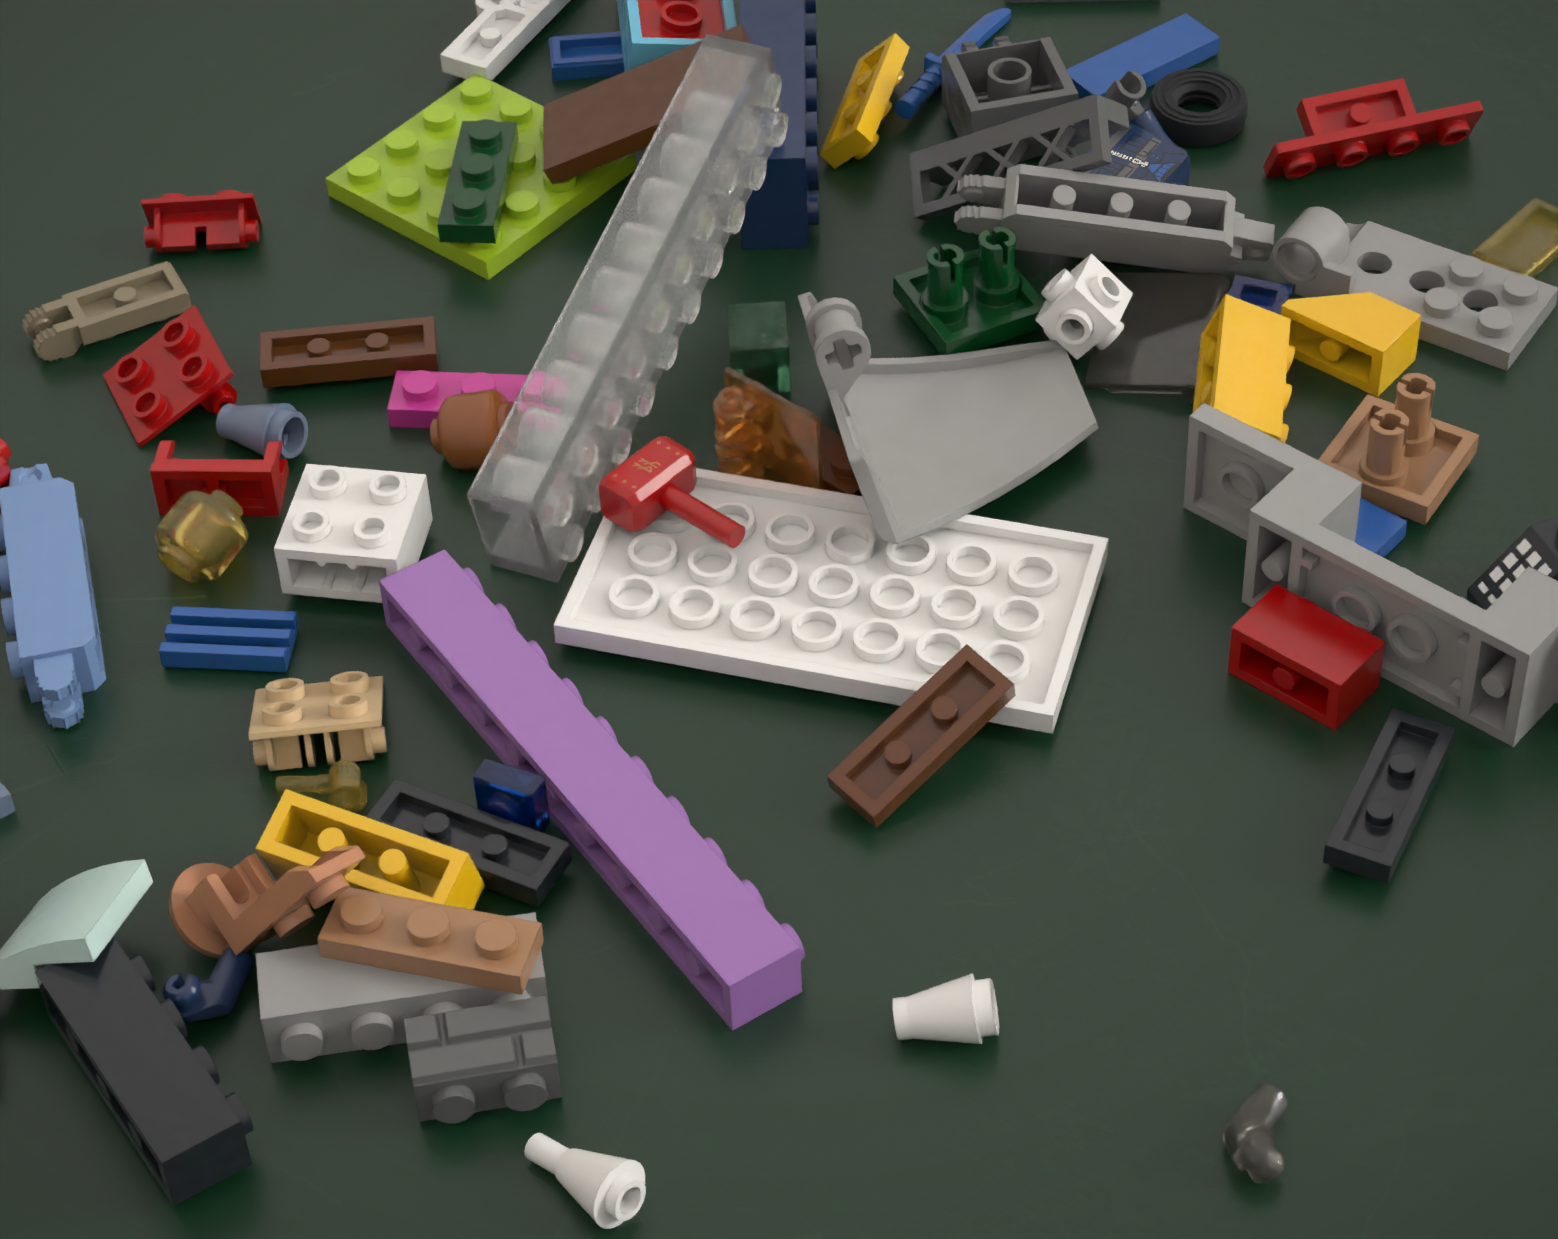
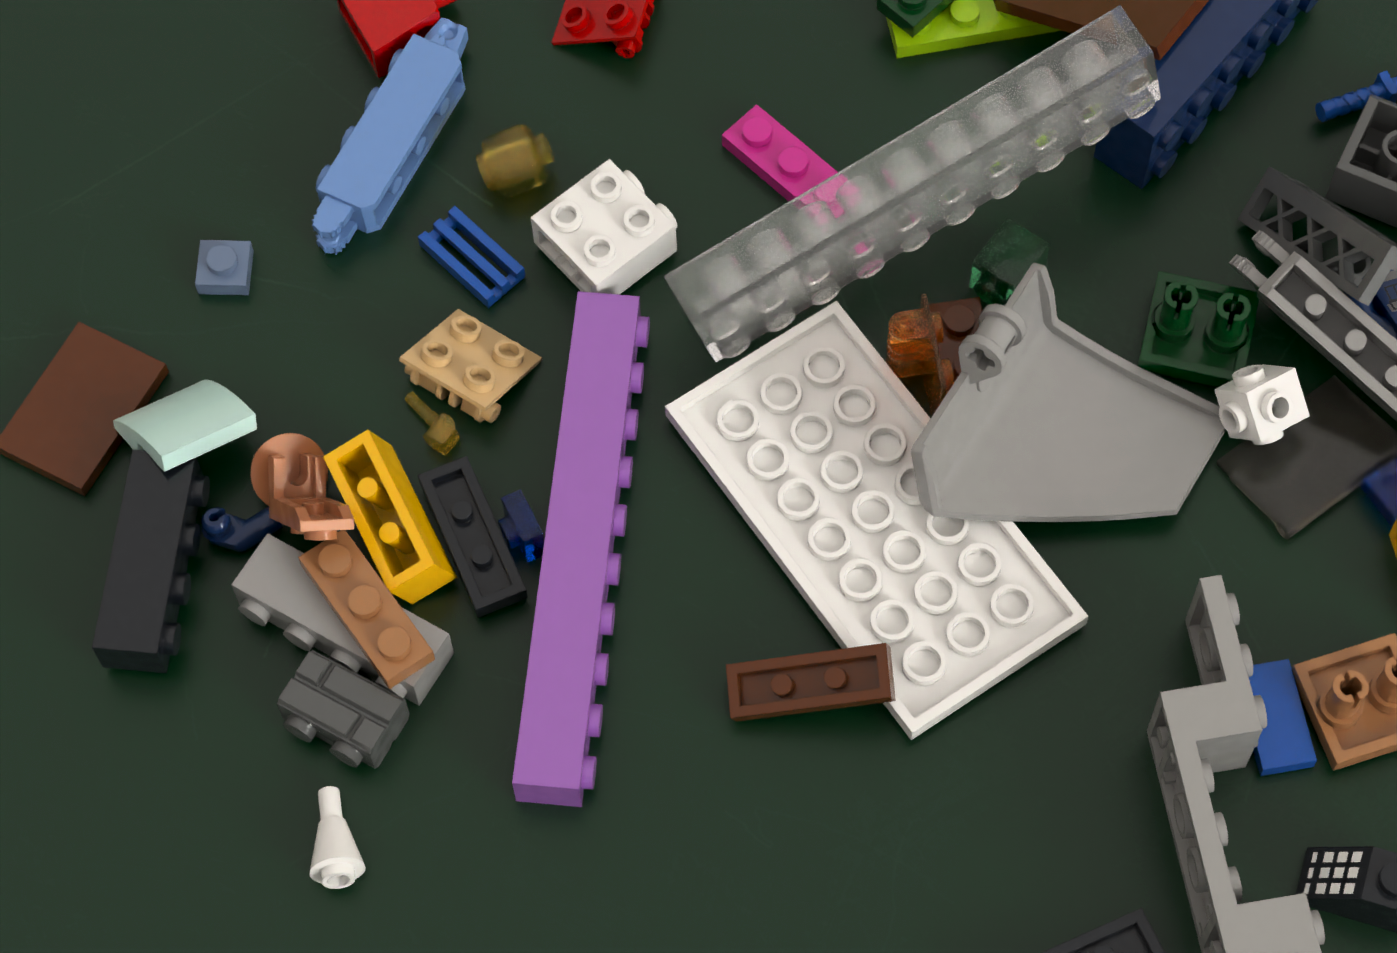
camera: 40 degrees right, 20 degrees up
(252, 483) = (568, 117): red hinge -> none
(260, 423) = (631, 96): sand blue cone -> none
(348, 351) = (740, 64): reddish brown plate -> none
(469, 427) = (755, 193): dark orange head -> none
(658, 481) = (815, 344): red piece -> none
(865, 102) = (1297, 85): yellow plate -> none
(949, 1012) = (644, 904): white cone -> none
(1246, 365) = (1310, 557): yellow brick -> none
(1306, 657) = (1130, 817): red brick -> none

